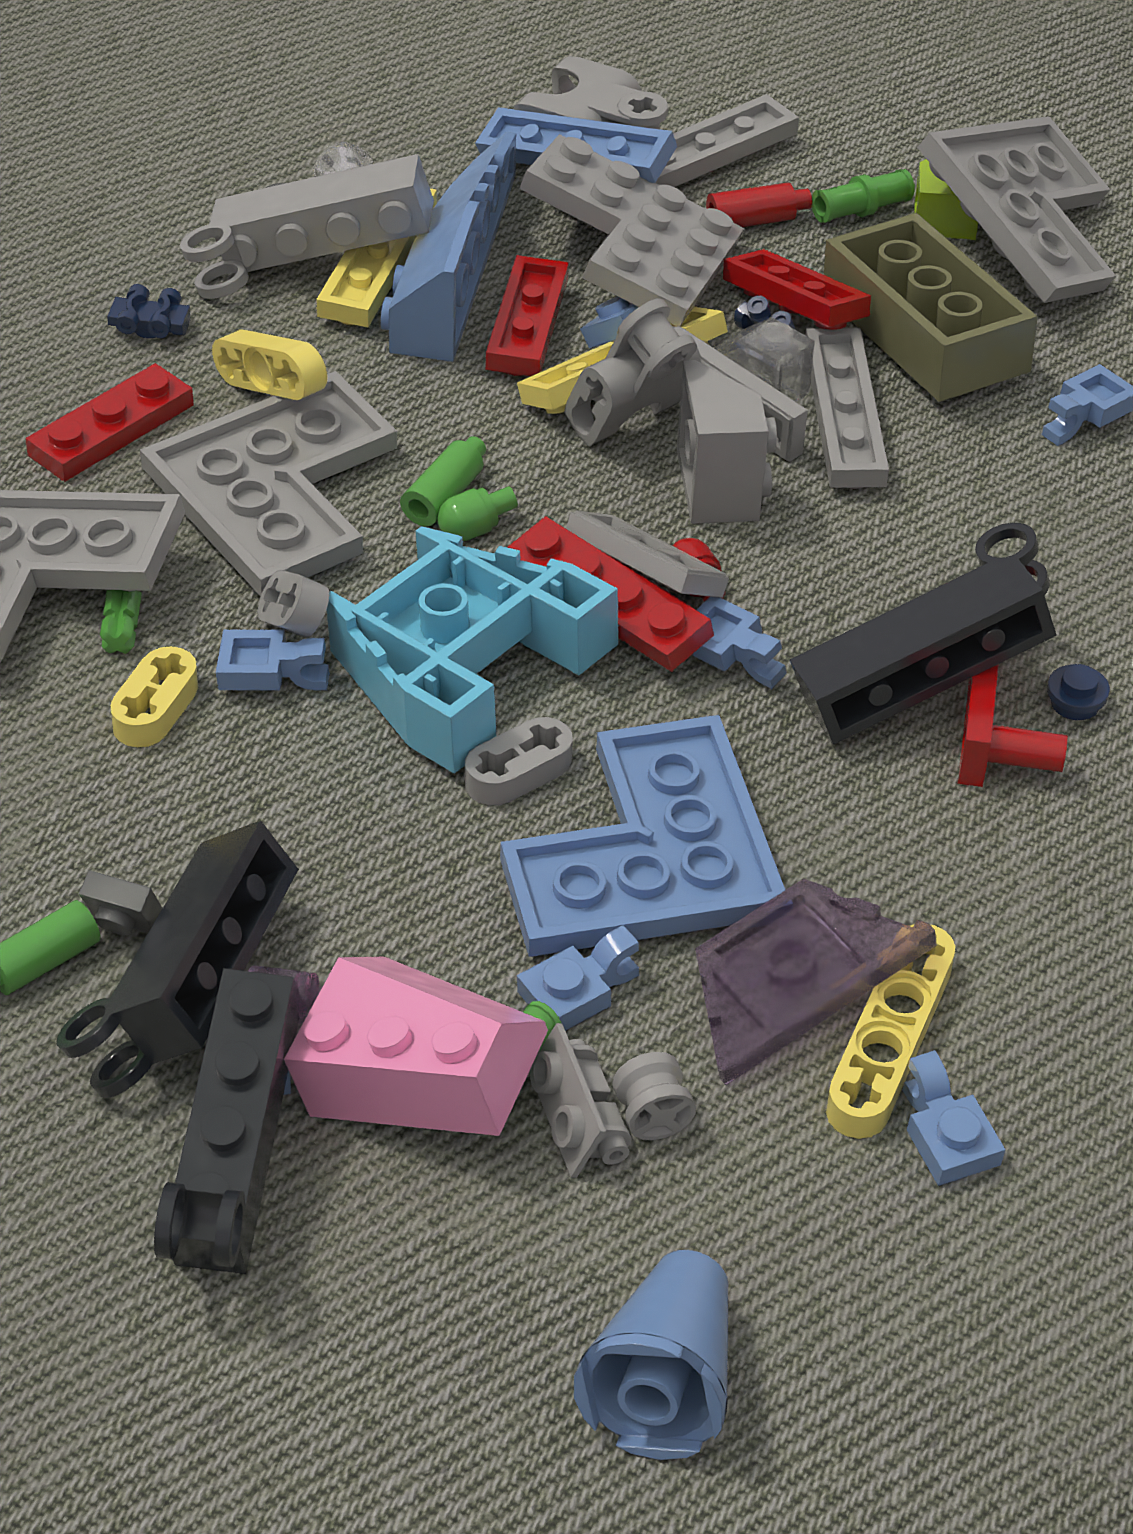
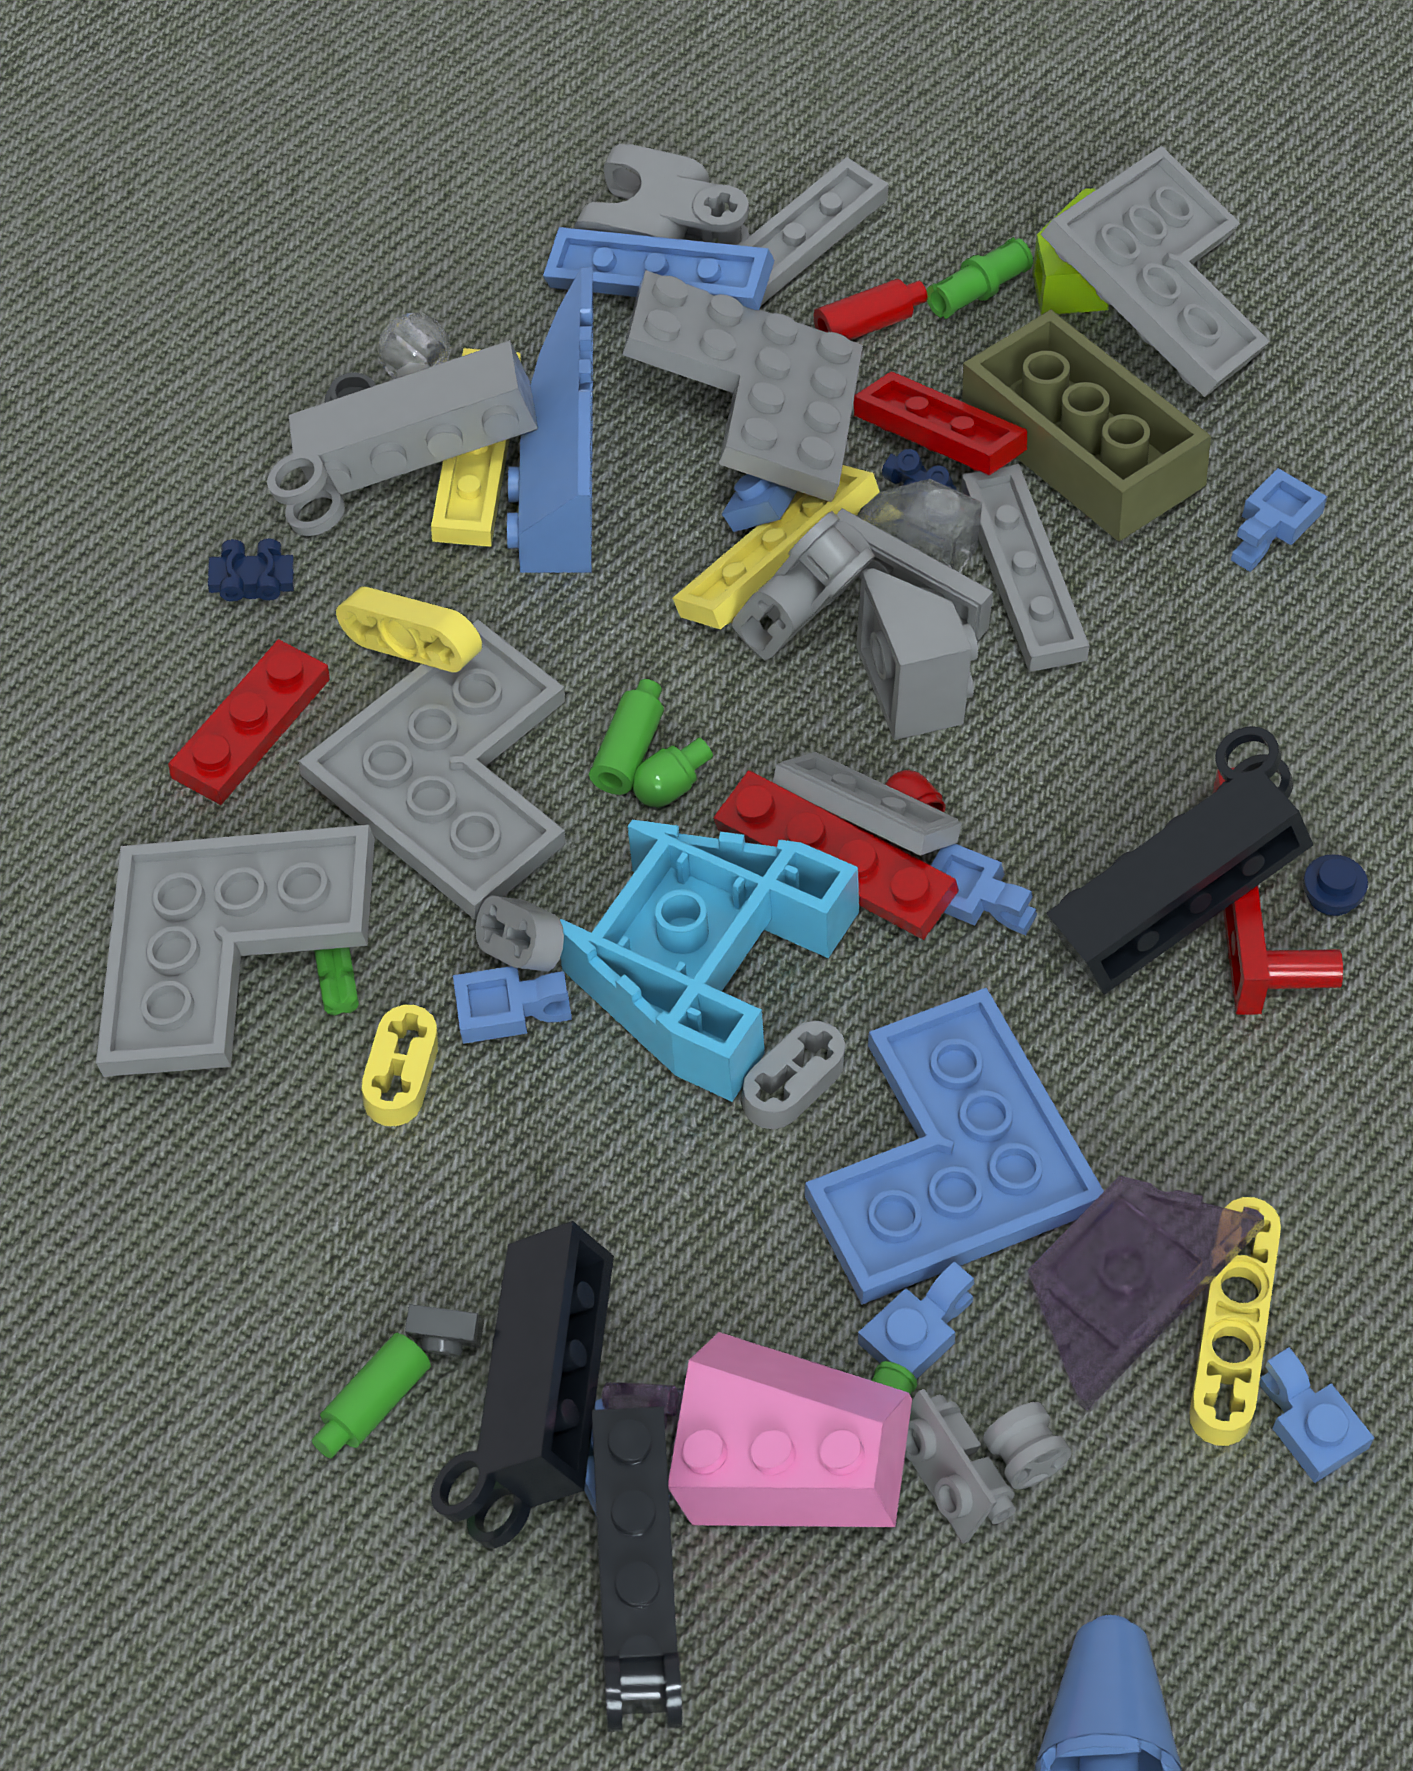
camera: 10 degrees left, 10 degrees up
(527, 316) = (660, 505): red plate -> none

